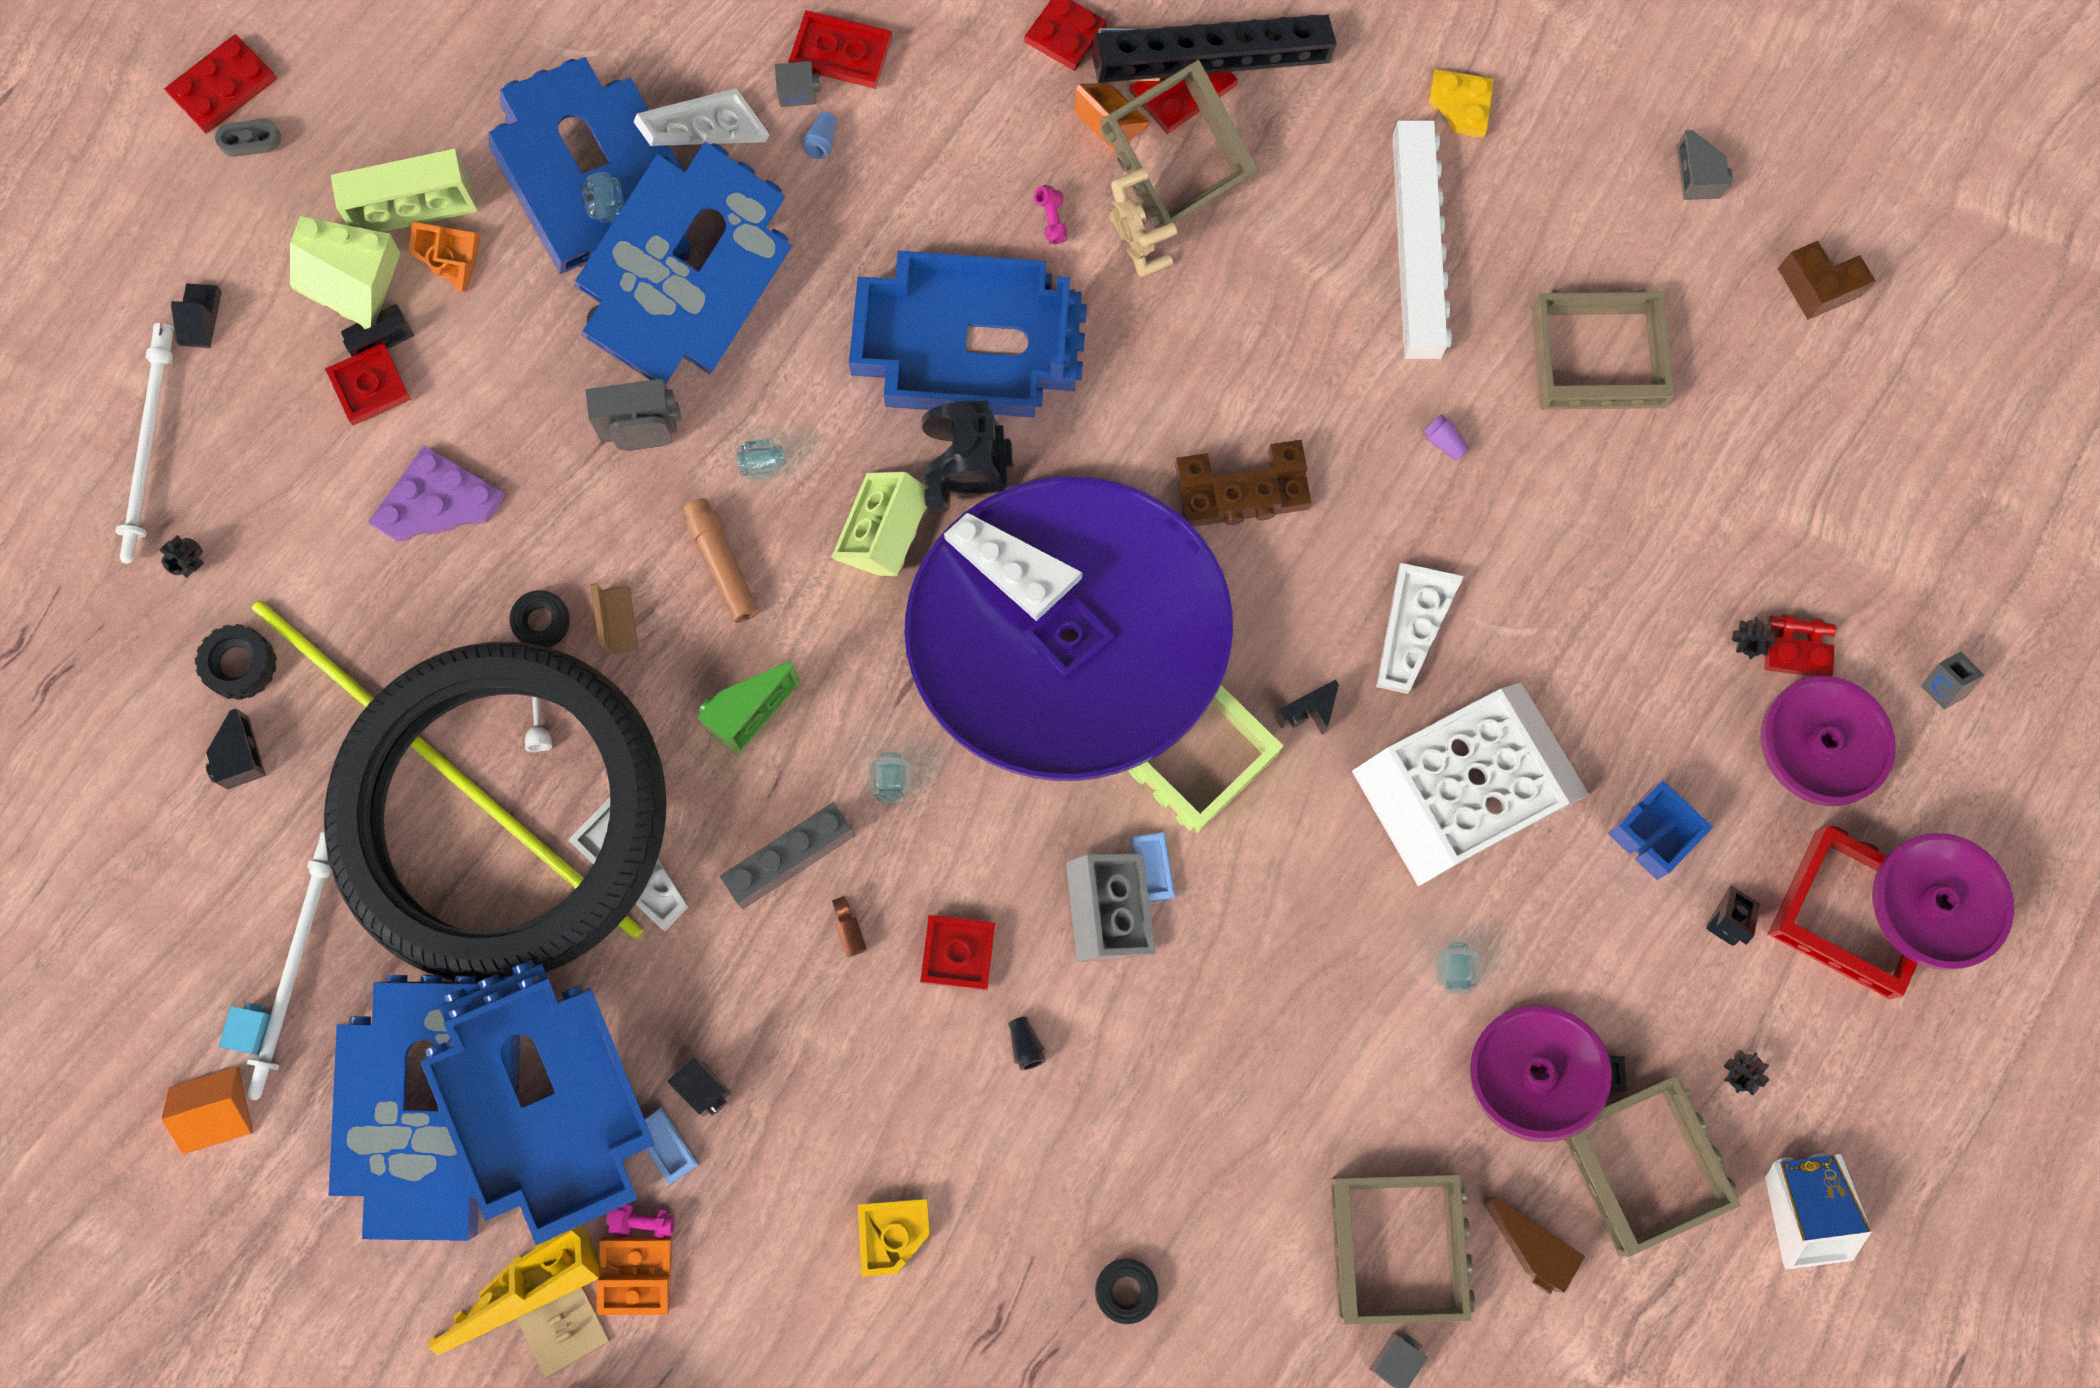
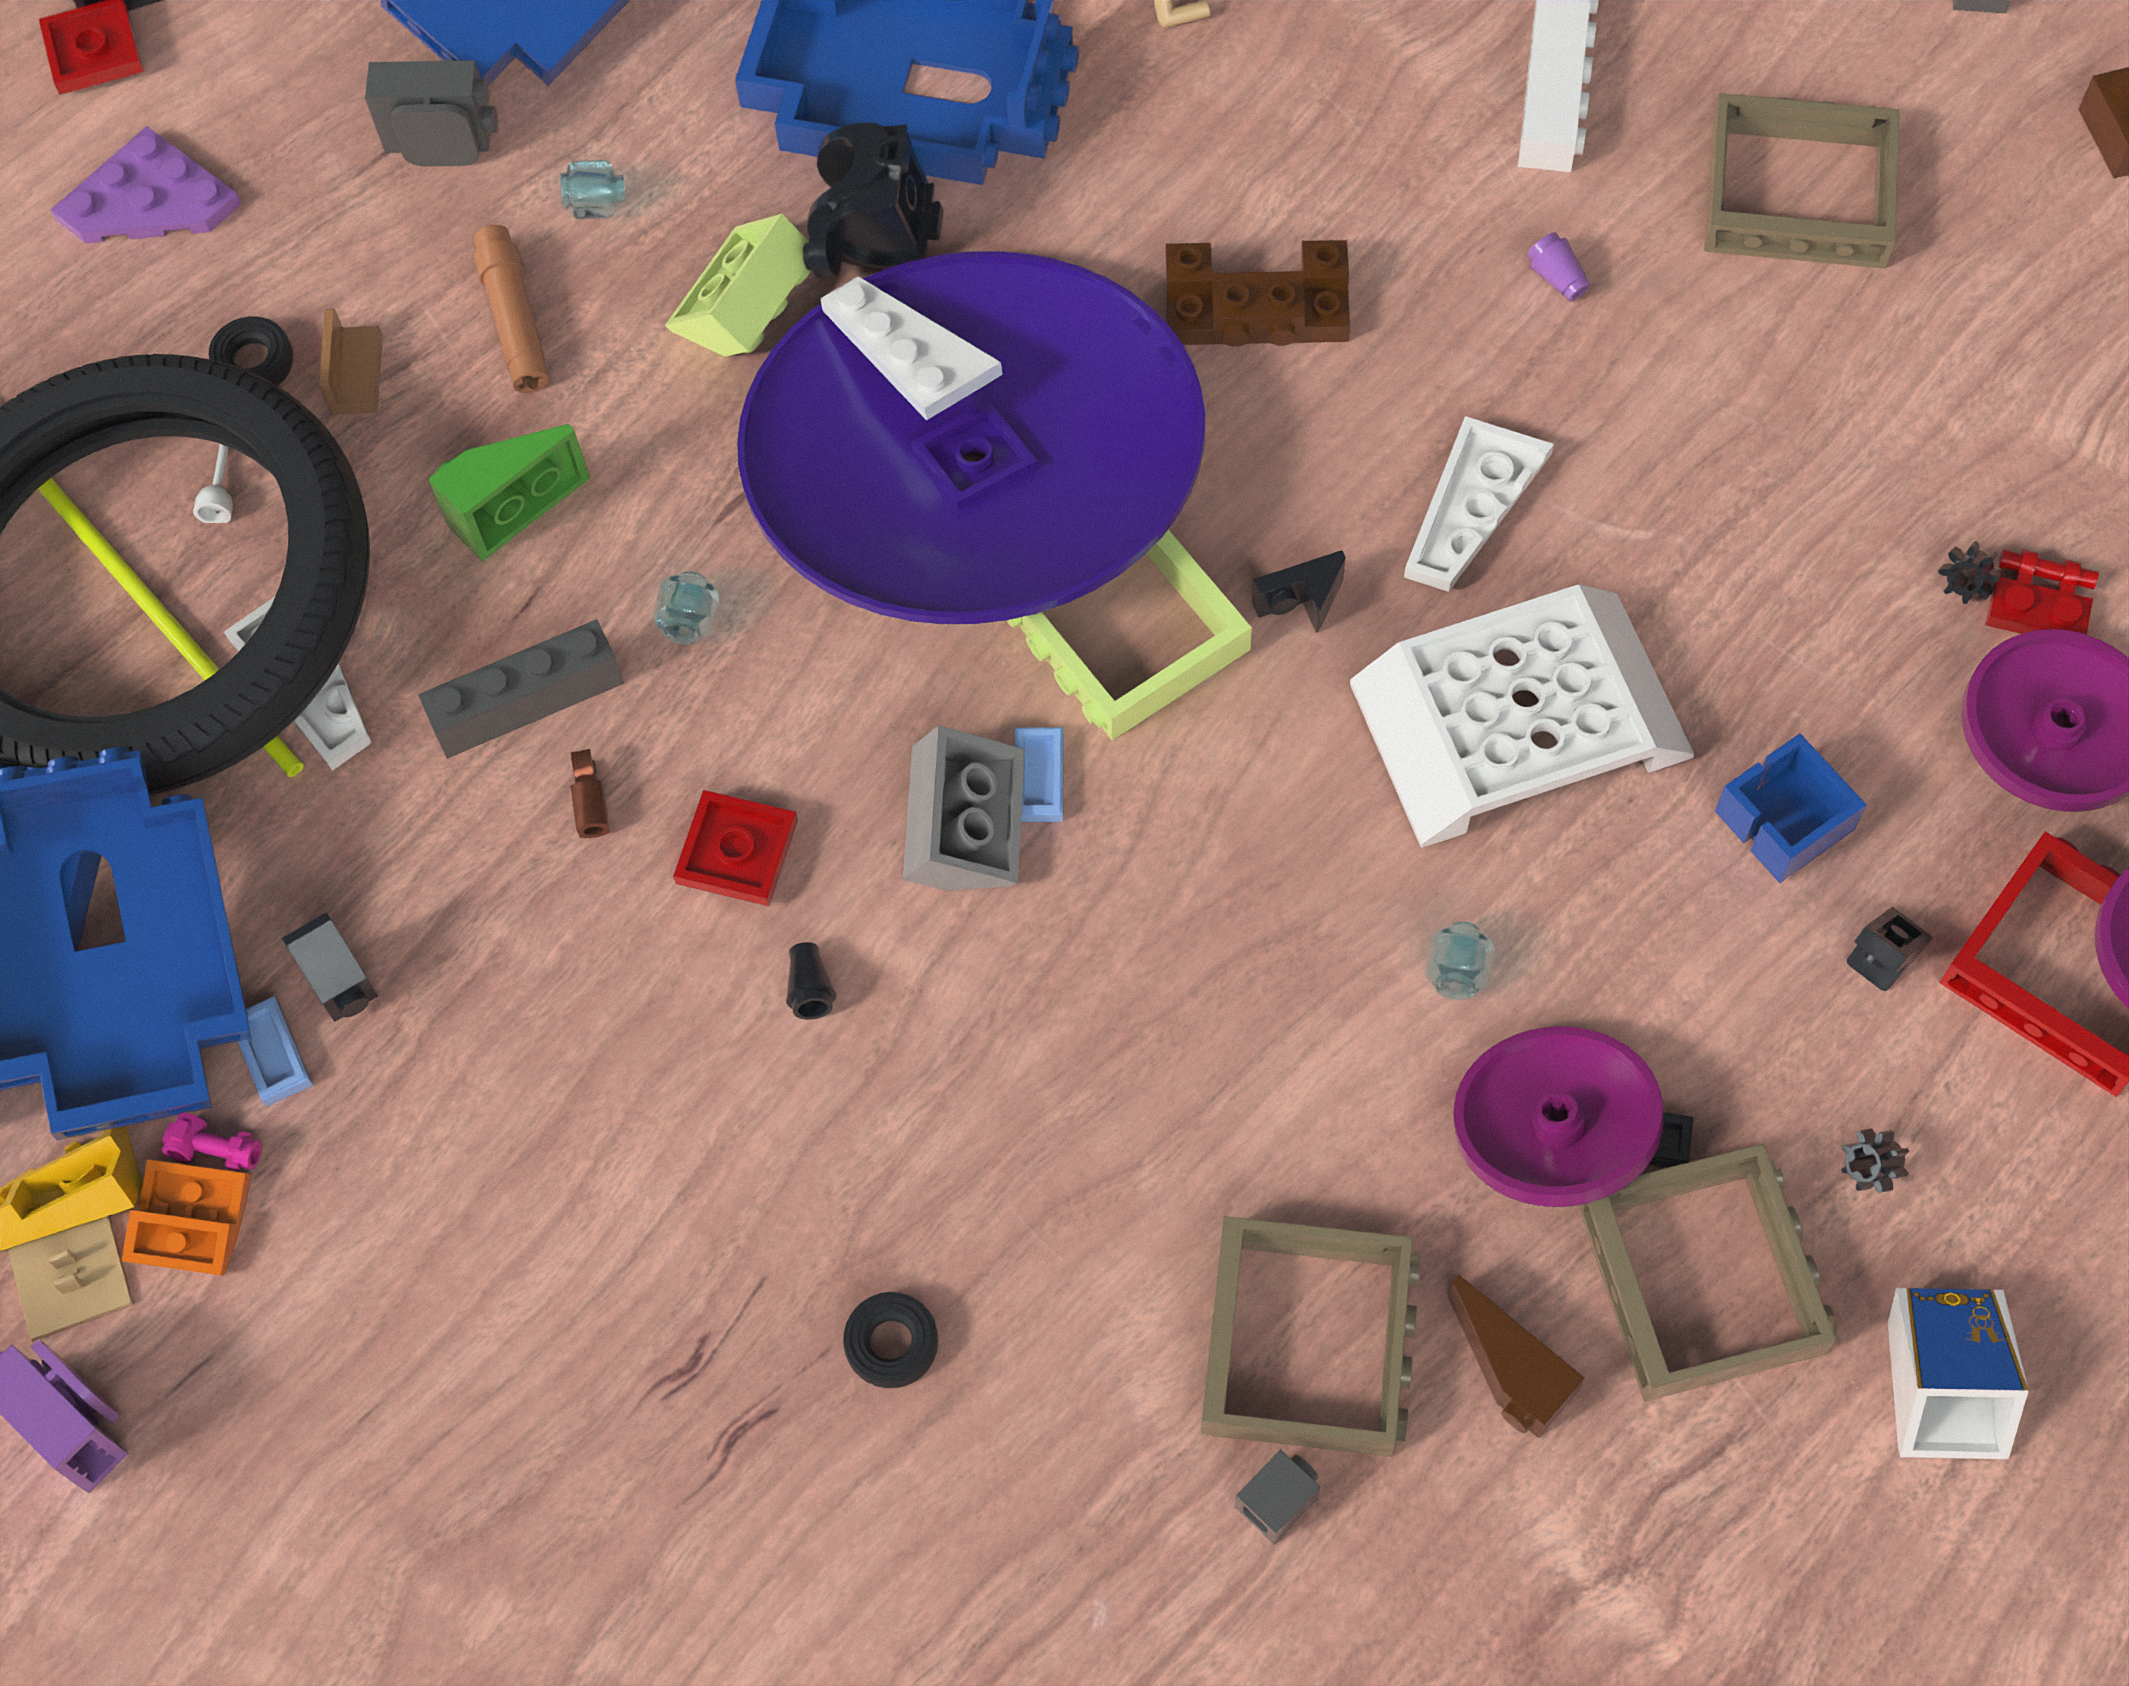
camera: 15 degrees right, 10 degrees down
(891, 1234) = (563, 1211): yellow plate -> none

